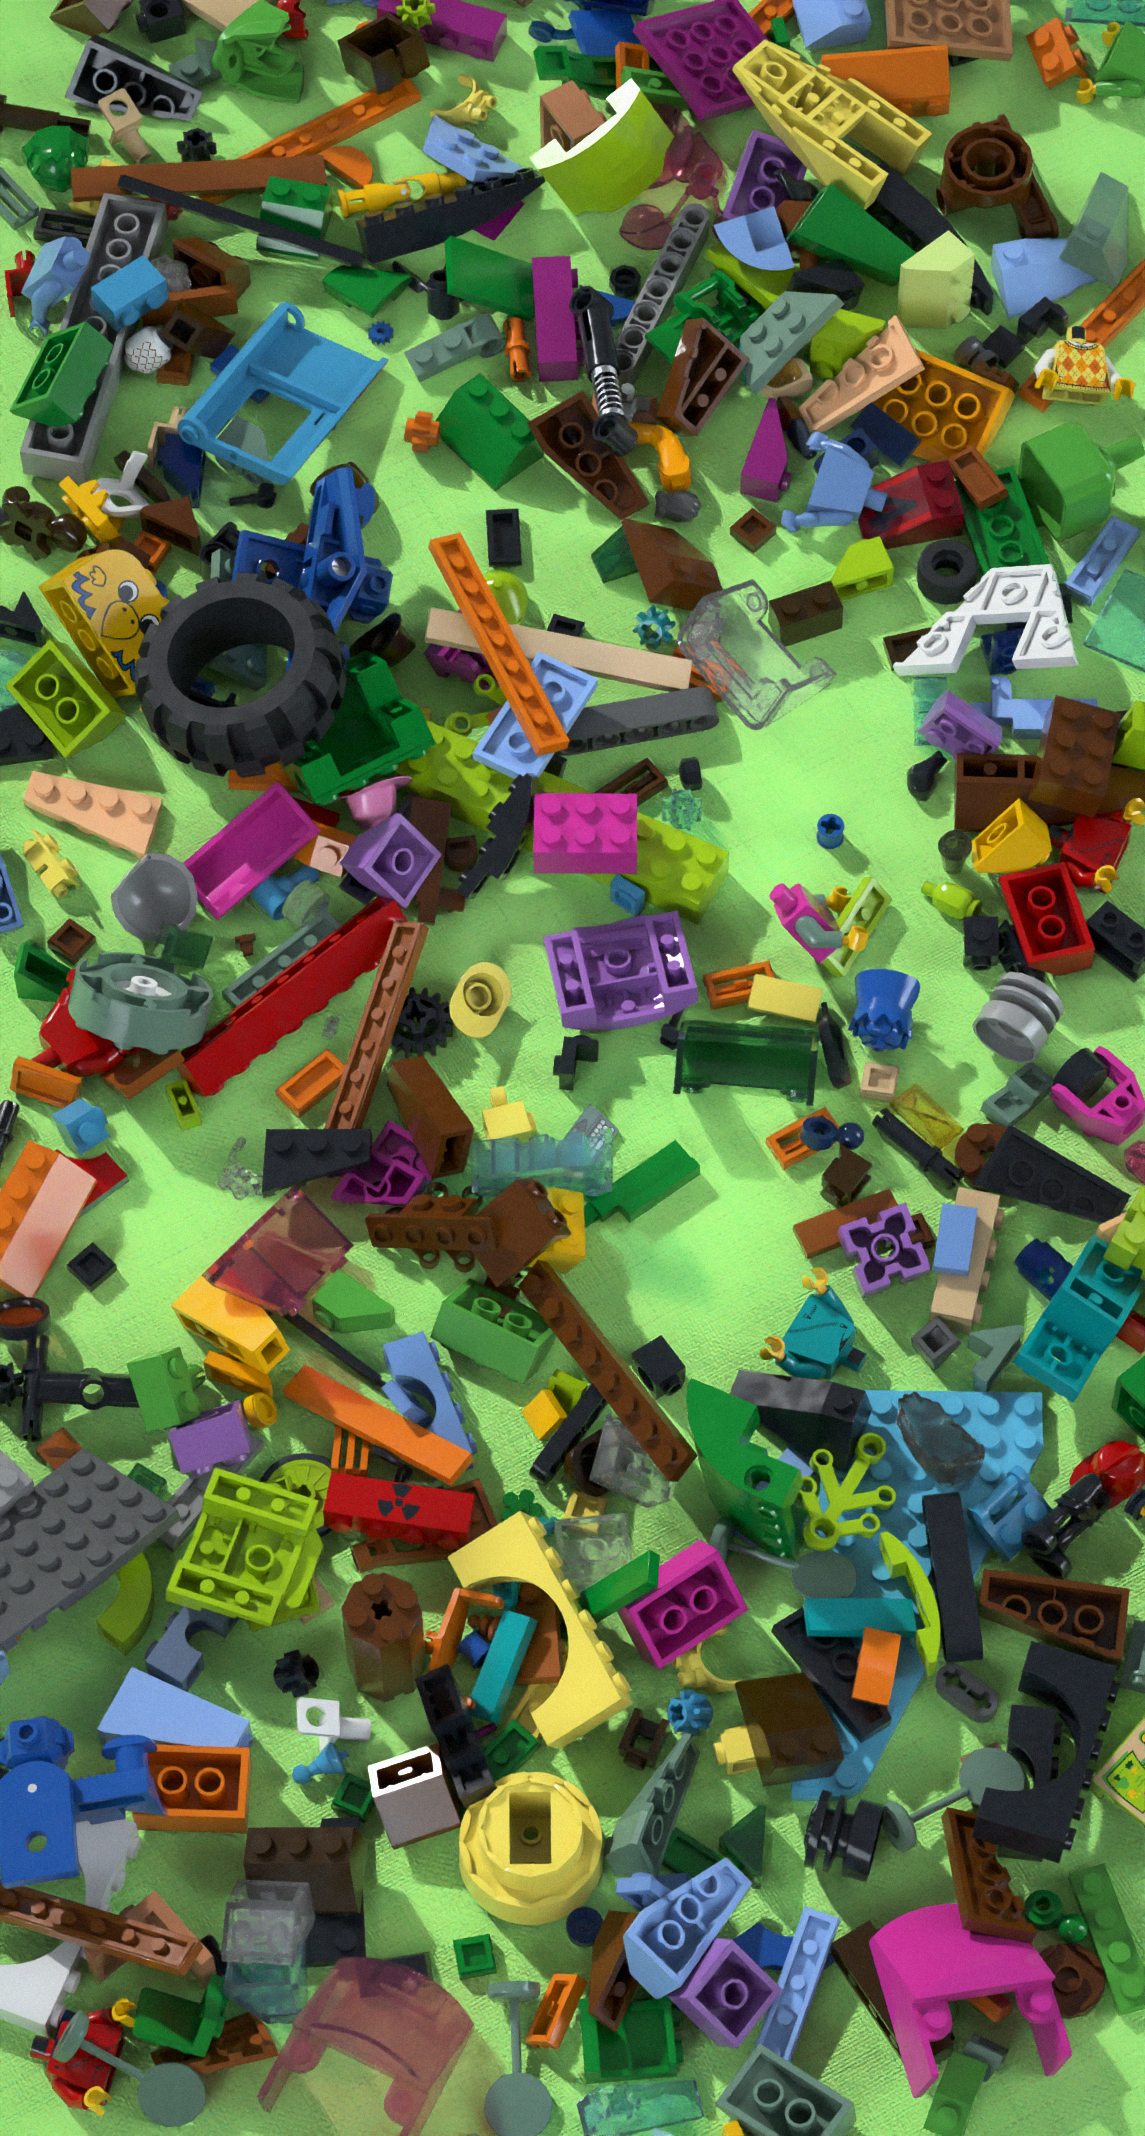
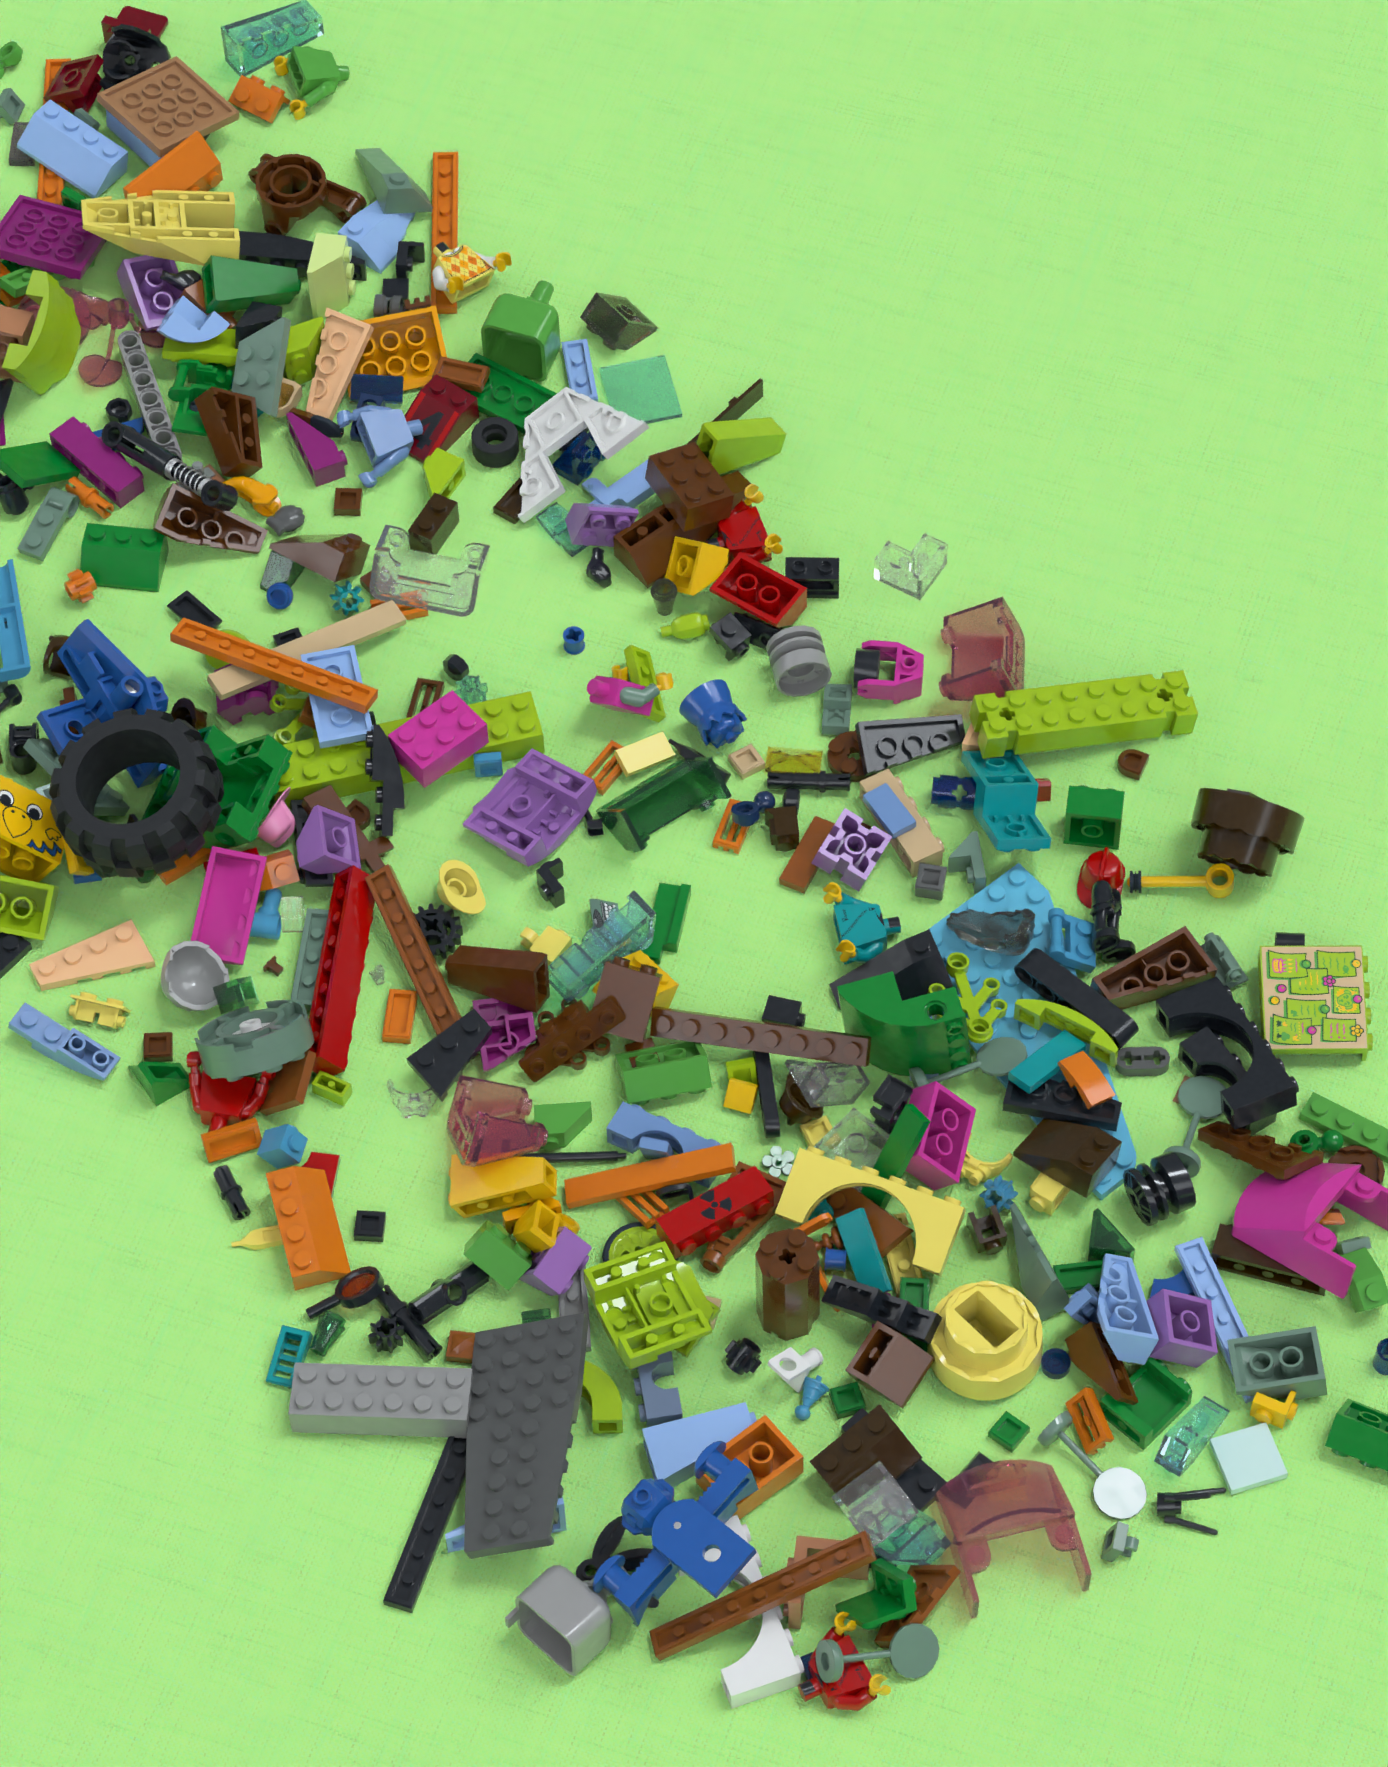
camera: 40 degrees left, 5 degrees down
(223, 1391) = (537, 1227): none -> yellow slope
(596, 578) = (279, 595): none -> blue plate
(642, 720) = (399, 650): dark grey beam -> none
(664, 1535) = (892, 1097): none -> black piece
(881, 1156) = (791, 798): none -> black tile

